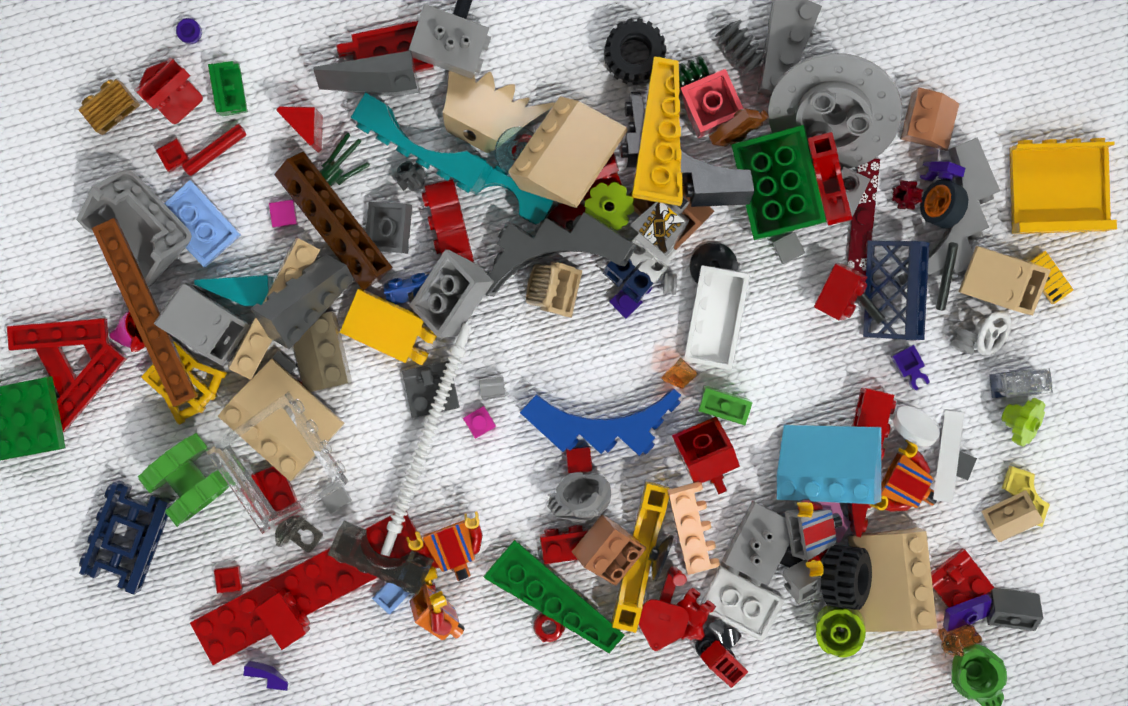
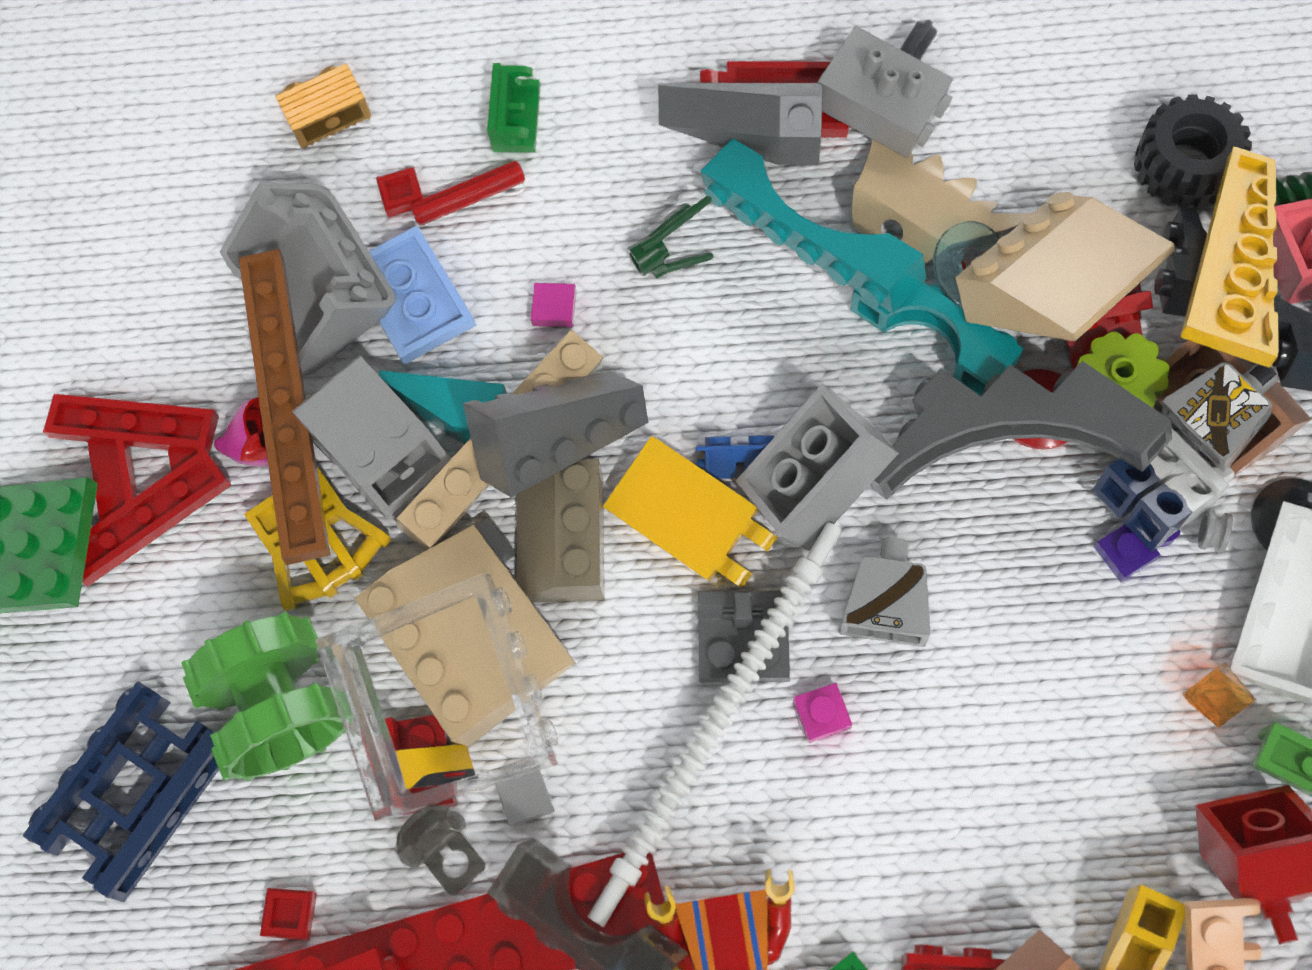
camera: 20 degrees right, 20 degrees down
(168, 90) = (423, 96): red piece -> none
(189, 31) = (475, 28): dark purple tile -> none
(284, 494) = (434, 765): none -> yellow sticker
(306, 122) = (622, 165): red slope -> none
(333, 220) = (636, 323): reddish brown brick -> none
(389, 226) = (726, 348): dark grey hinge -> none
(410, 176) = (780, 277): dark grey gear -> none
(447, 219) = (828, 346): red brick -> none
(492, 388) = (858, 655): light grey brick -> none
(503, 354) = (889, 598): none -> light grey torso
(554, 288) = (1001, 495): tan piece -> none
(579, 460) = (1001, 822): red tile -> none
(580, 497) = (999, 889): light grey helmet -> none
(632, 429) = (1050, 775): blue arch -> none

